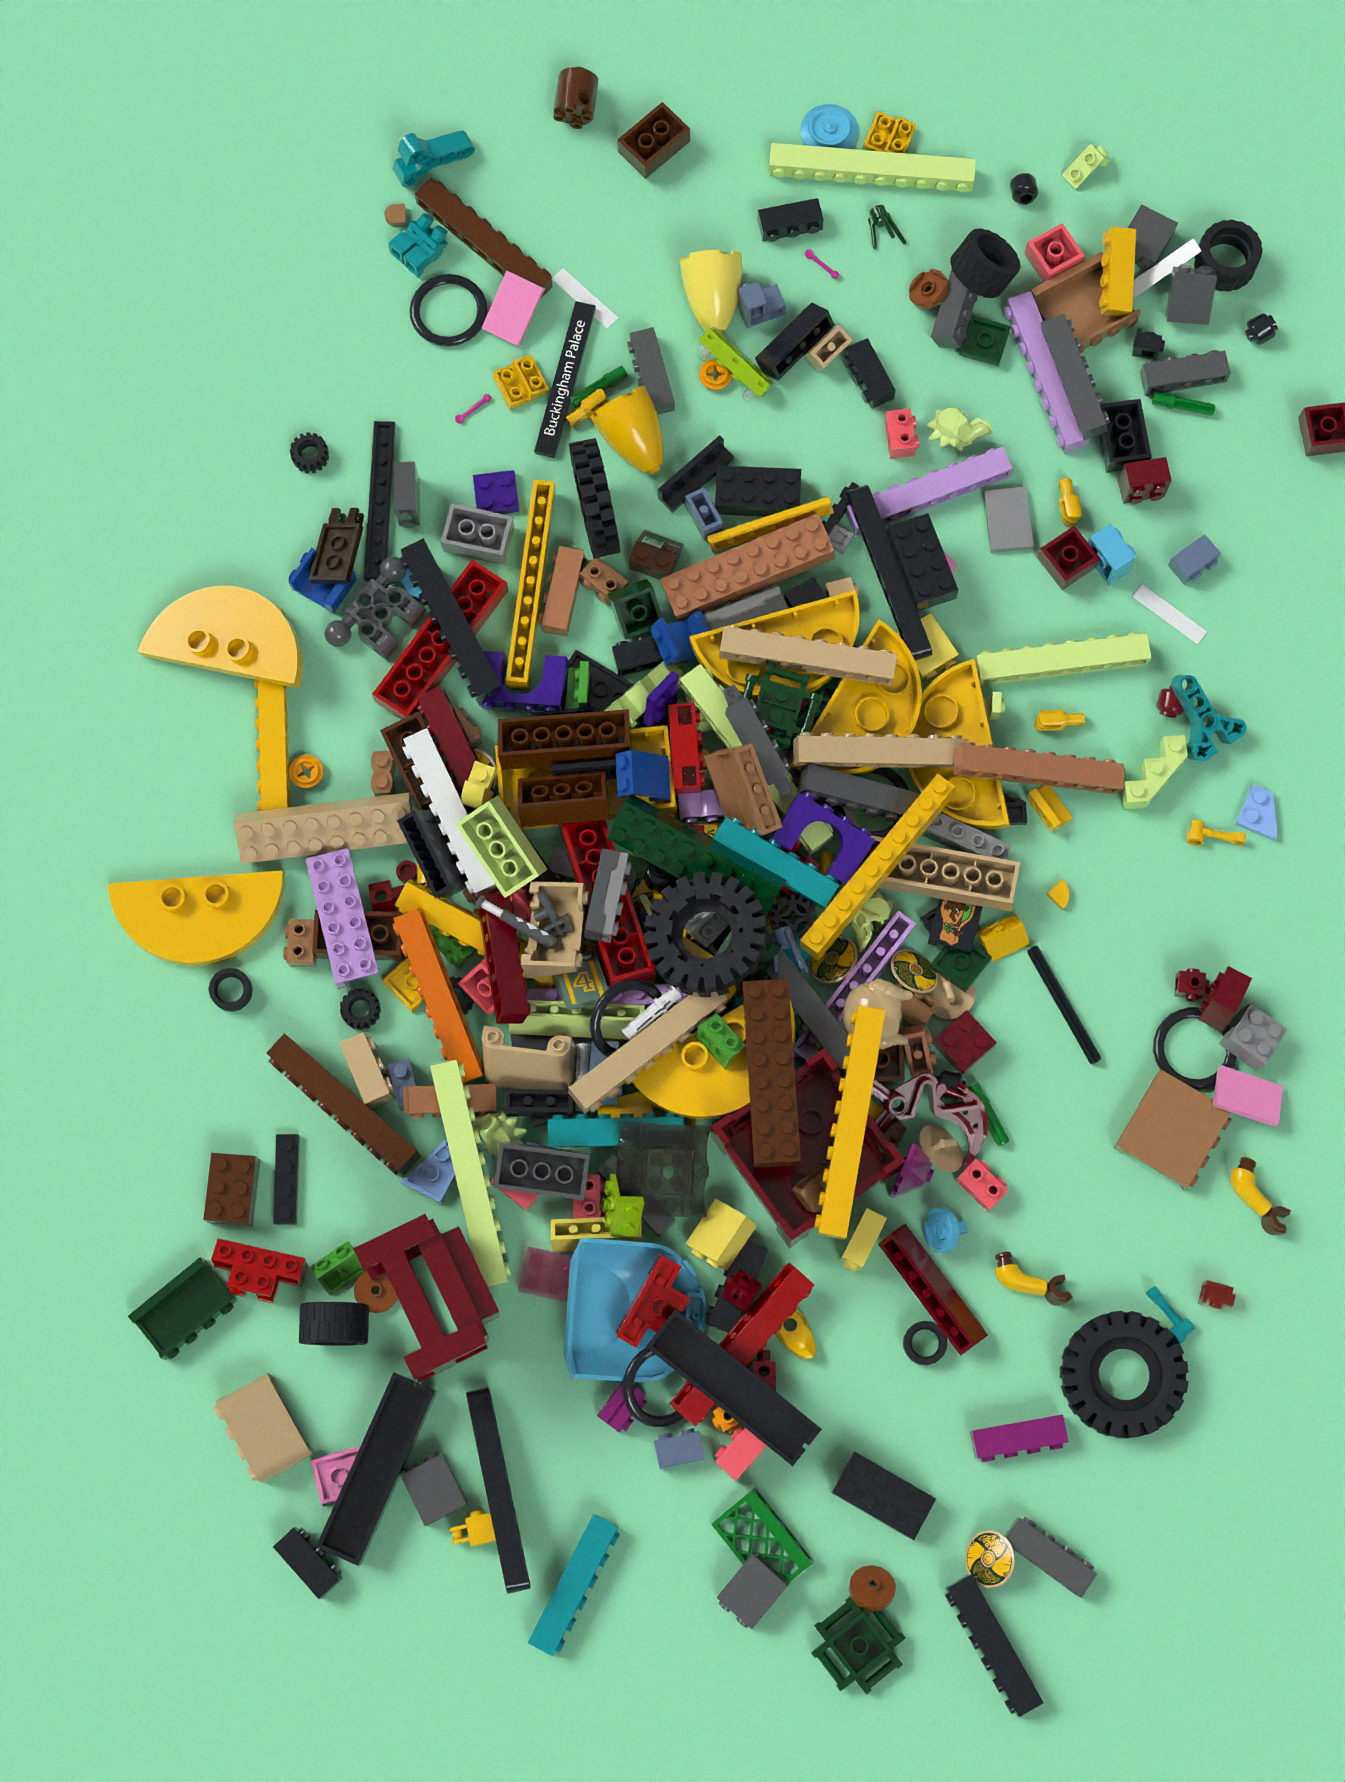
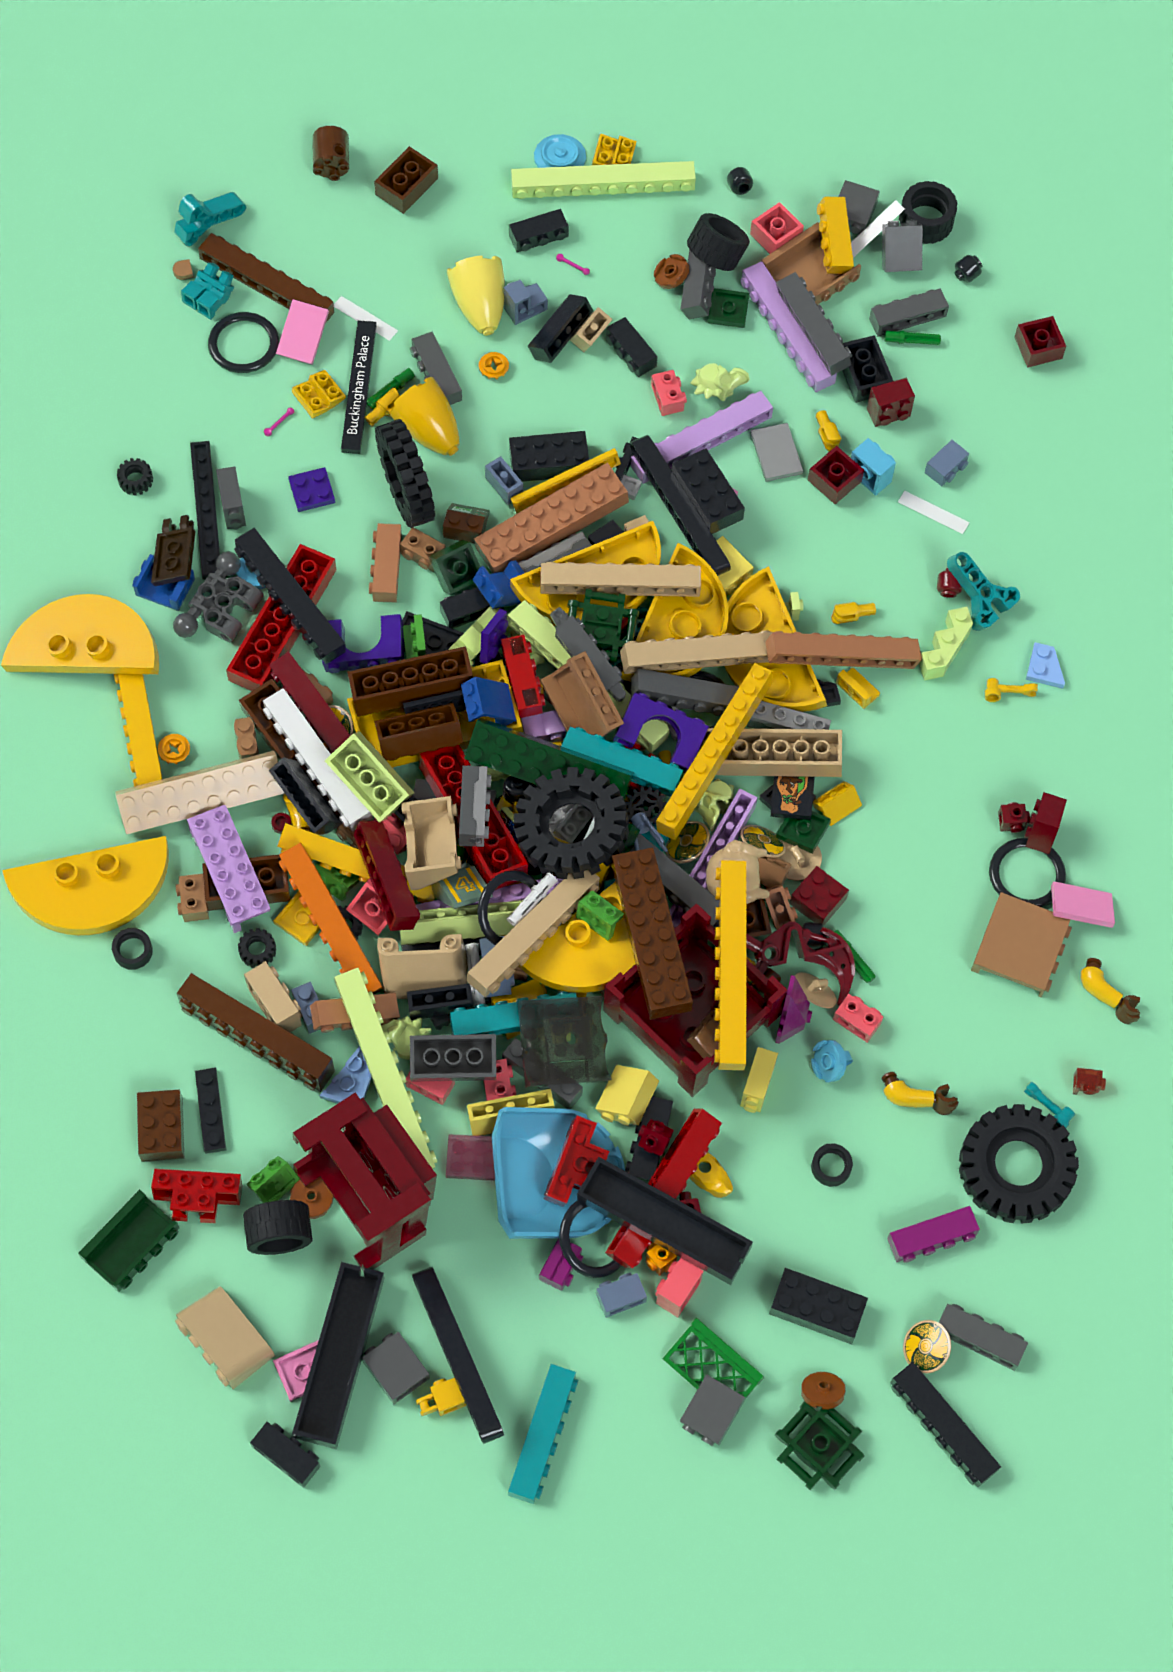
camera: 15 degrees left, 10 degrees down
(392, 895) = (264, 839): dark red piece -> none
(477, 533) = (301, 523): light grey brick -> none
(477, 788) = (339, 728): light yellow brick -> none
(531, 585) = (357, 560): yellow brick -> none
(532, 931) = (396, 841): dark grey piece -> none
(556, 921) = (424, 827): dark grey arm -> none
(622, 1212) = (532, 1081): lime bracket -> none
(694, 474) = (488, 449): black fence -> none
(731, 357) = (507, 348): lime piece -> none
(881, 218) = (618, 220): dark green plant -> none
(933, 1289) = (830, 1114): dark red brick -> none
(1059, 894) = (881, 759): yellow tile -> none
(1063, 659) = (848, 560): yellowish green brick -> none
(1064, 1005) = (903, 853): black axle -> none
(1086, 164) = (790, 155): yellowish green bracket -> none
(1147, 344) = (871, 293): black brick -> none
(1253, 1036) = (1077, 853): light grey brick -> none

